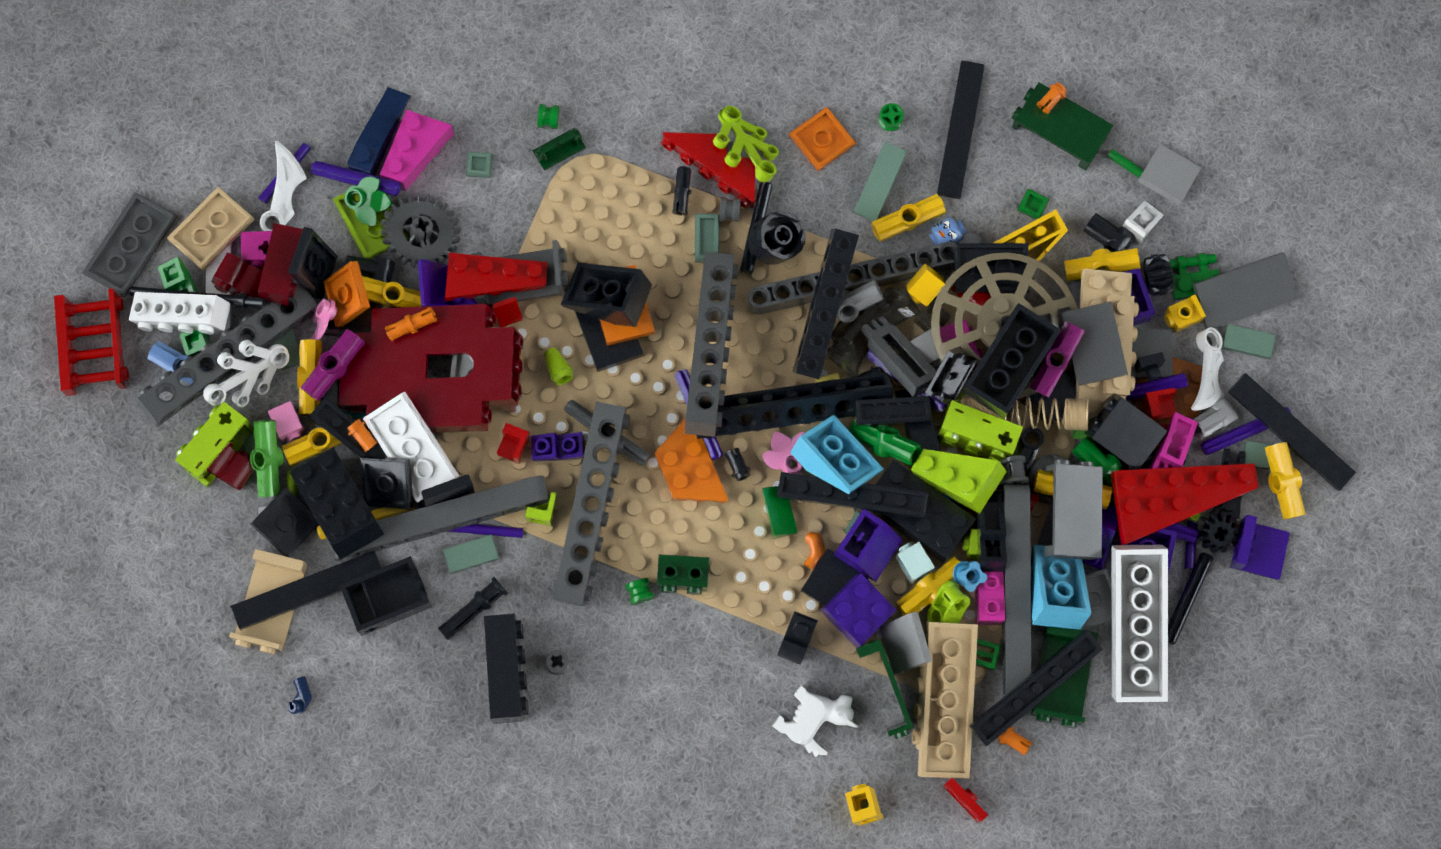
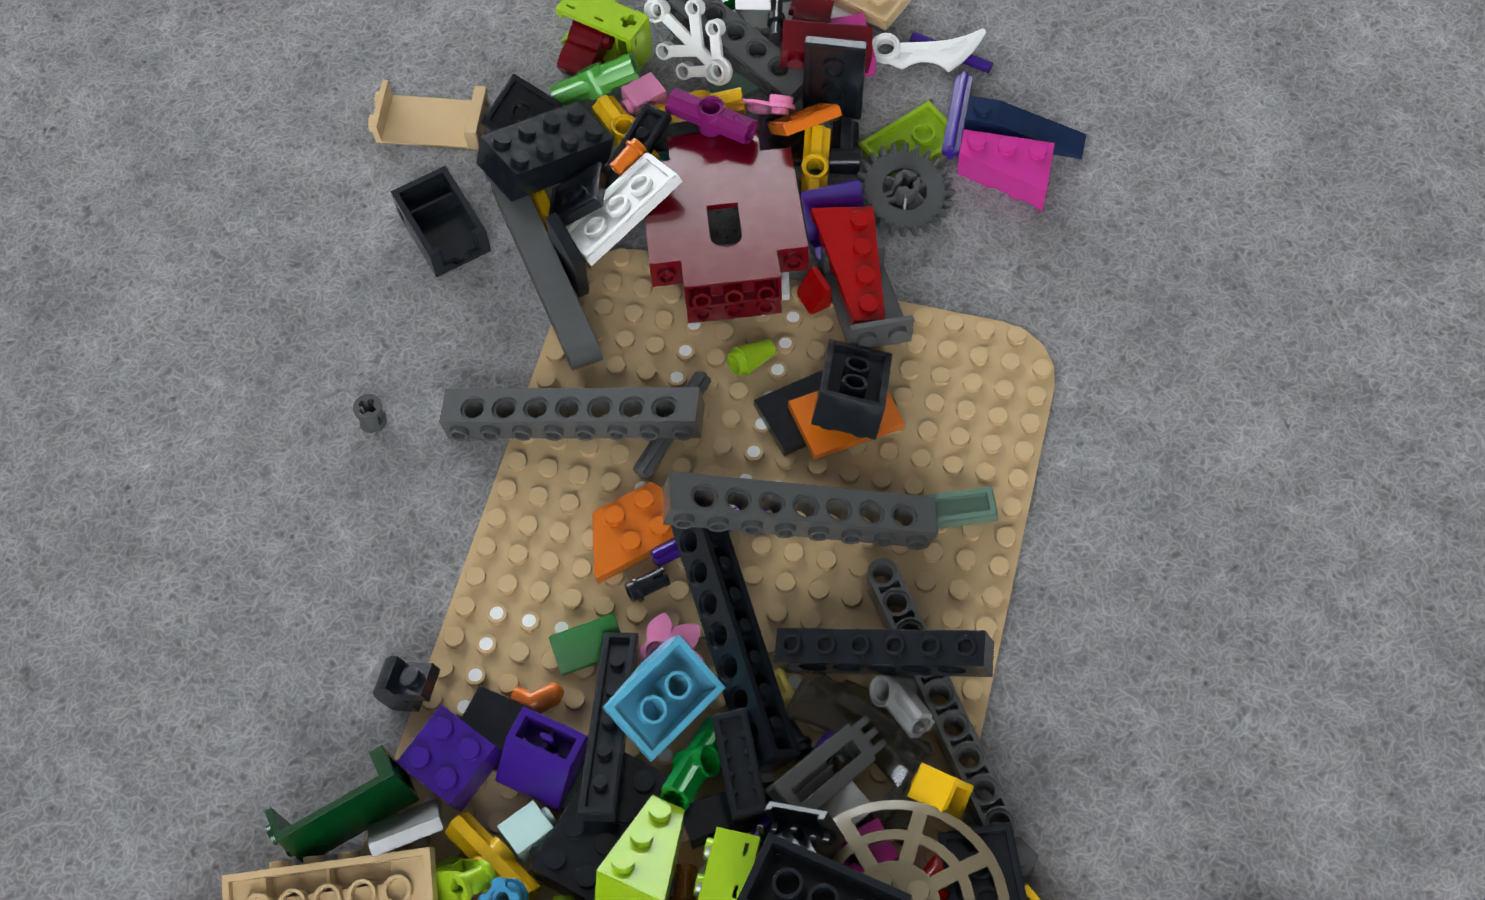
camera: 90 degrees right, 15 degrees down
(302, 591) = (445, 146): black tile -> none
(302, 698) = (322, 168): dark blue arm -> none
(370, 201) = (930, 126): green plate -> none
(411, 323) = (772, 178): orange pin -> none
(471, 554) = (504, 306): sand green tile -> none
(479, 164) = (1007, 241): sand green tile -> none
(482, 600) = (444, 323): black pin -> none
(491, 530) = (536, 326): dark purple bar -> none
(504, 671) = (354, 351): black brick -> none
(513, 443) = (645, 326): red panel -> none
(543, 513) = (558, 370): lime panel -> none
(548, 116) = (1089, 302): green wheel -> none
(557, 447) = (645, 364): dark purple slope -> none
(559, 148) = (1049, 323): dark green hinge -> none
(639, 591) = (467, 493): green wheel -> none
(682, 191) = (1019, 466): black axle -> none
(682, 573) = (490, 535): dark green brick -> none
(710, 160) = (1079, 500): red slope -> none
(729, 209) = (1006, 526): dark grey wheel -> none
(731, 119) = (1110, 532): lime plant -> none
(759, 212) = (989, 565): black axle -> none
(776, 237) = (987, 569): black brick -> none
(811, 715) = (309, 722): white animal -> none
(822, 139) = (1144, 641): orange tile -> none
(856, 797) = (186, 806): yellow brick -> none
(880, 181) = (1096, 723): sand green slope -> none
(891, 112) = (1202, 720): green wheel -> none
(921, 211) = (1062, 787): yellow piece -> none
(947, 231) = (1037, 826): medium blue head -> none
(960, 129) = (1209, 832): black tile -> none

